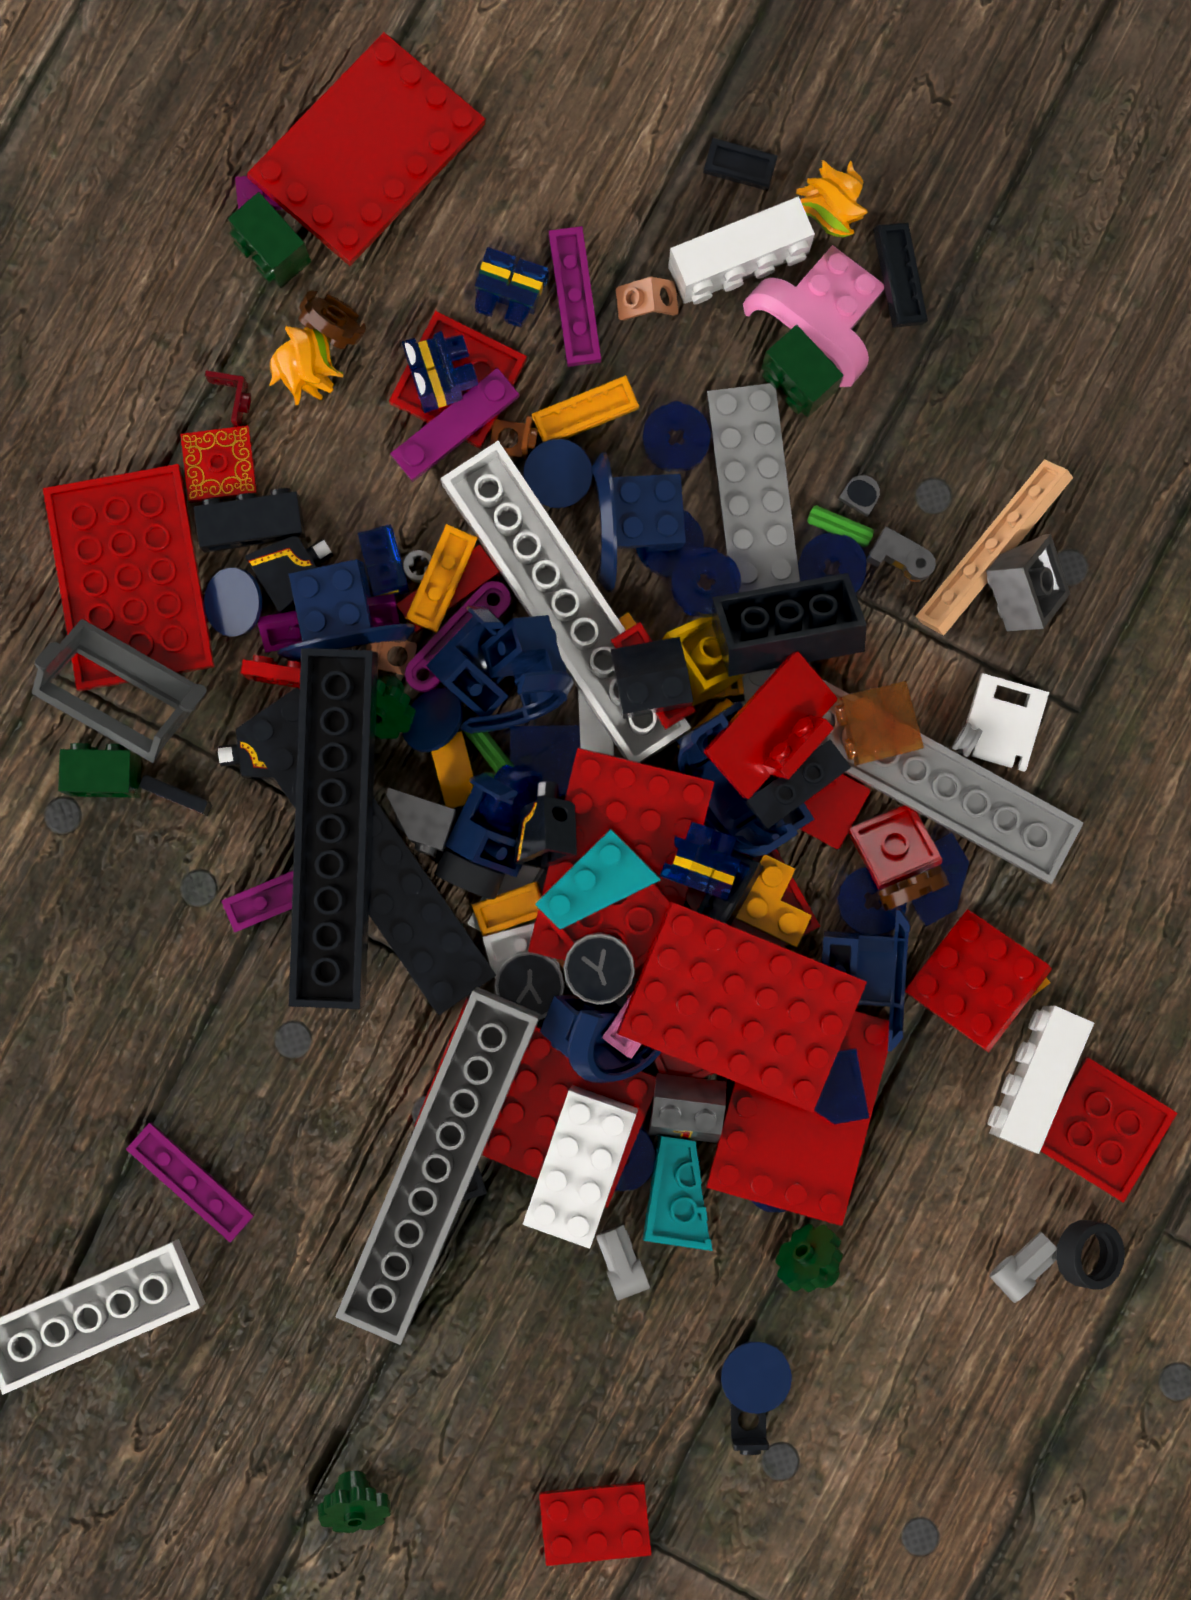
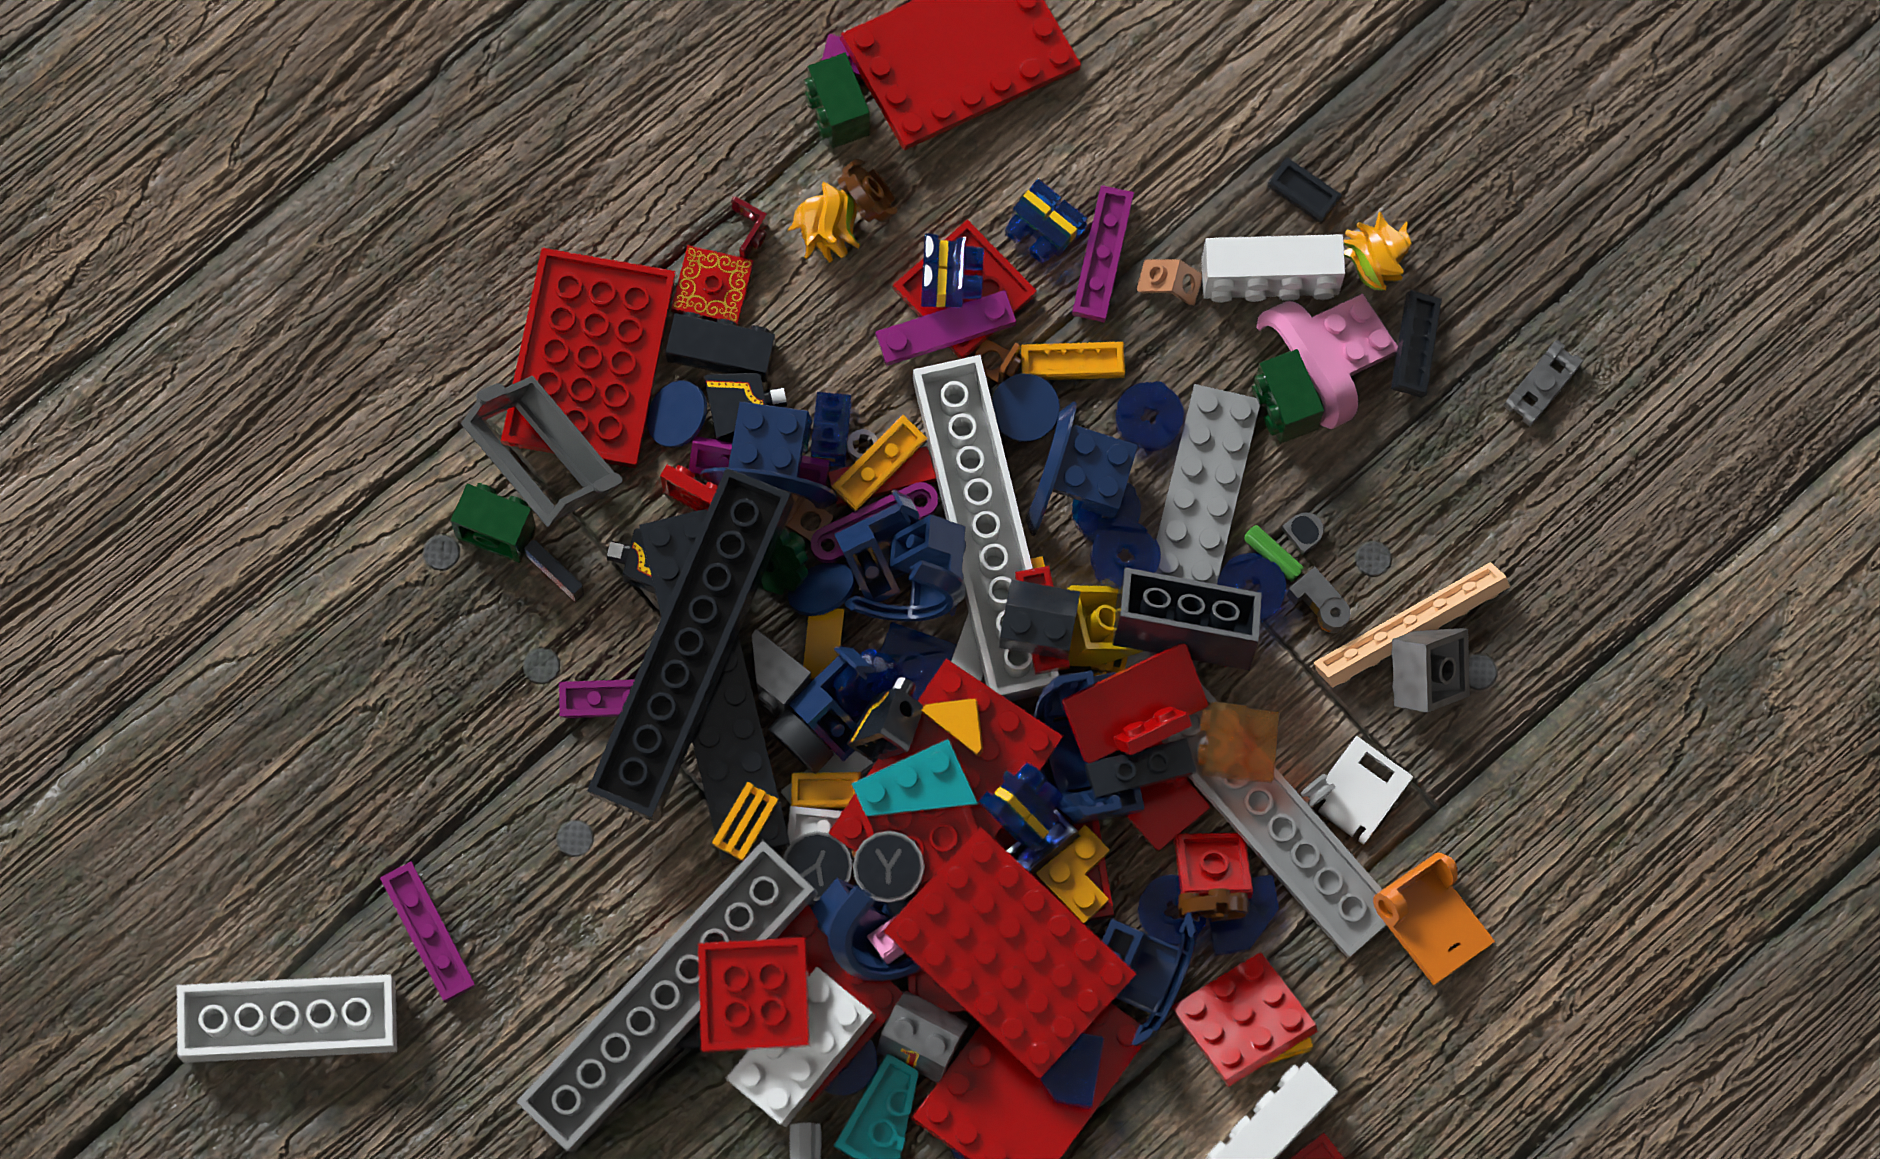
camera: 20 degrees right, 10 degrees down
(443, 1004) = (759, 796): none -> light orange tile
(489, 750) = (861, 631): bright green axle -> none
(520, 1141) = (754, 994): none -> red plate
(613, 806) = (960, 720): none -> light orange slope
(1031, 268) = (1543, 383): none -> flat silver plate
(1113, 818) = (1432, 918): none -> orange door

